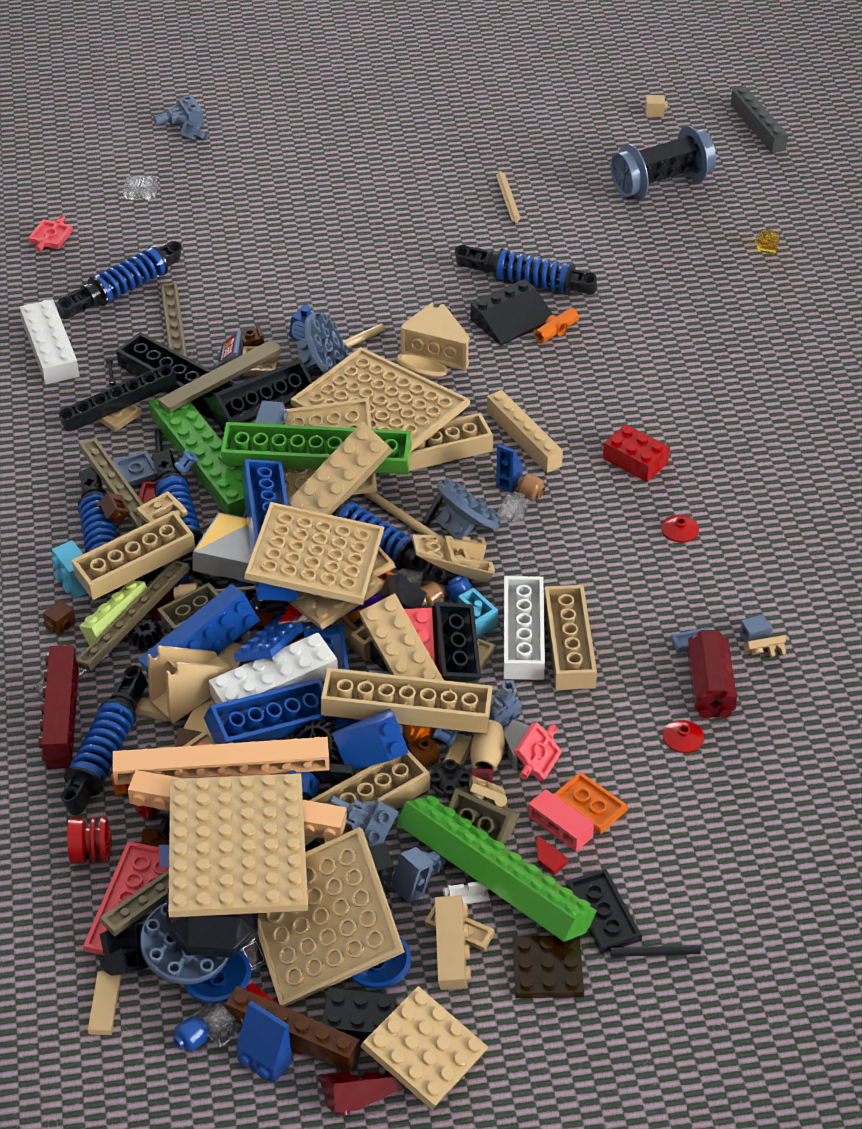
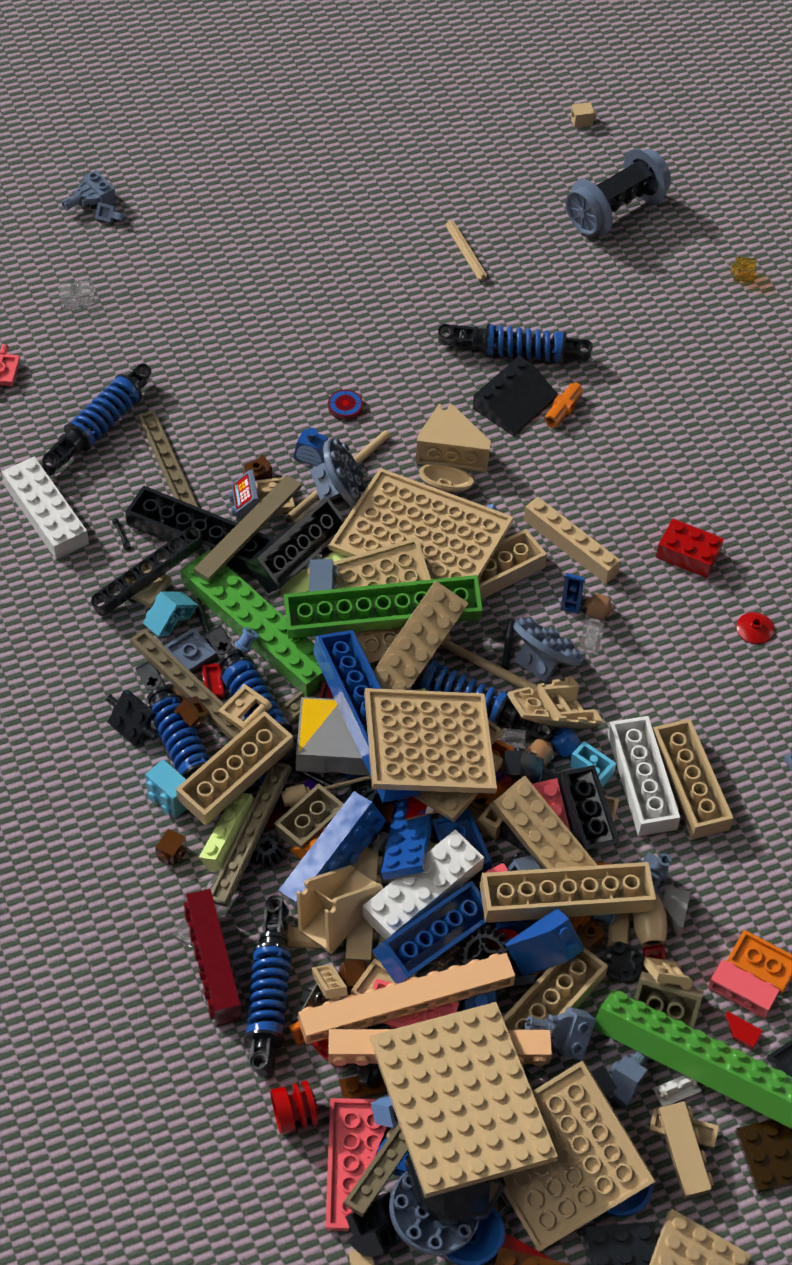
camera: 15 degrees left, 10 degrees up
(61, 509) = (131, 717): none -> black plate
(125, 432) = (167, 611): none -> medium azure brick
(157, 741) = (329, 982): none -> tan plate
(352, 300) = (345, 404): none -> dark red tile
(538, 751) = (700, 917): coral plate -> none
(759, 119) = (692, 118): dark grey brick -> none

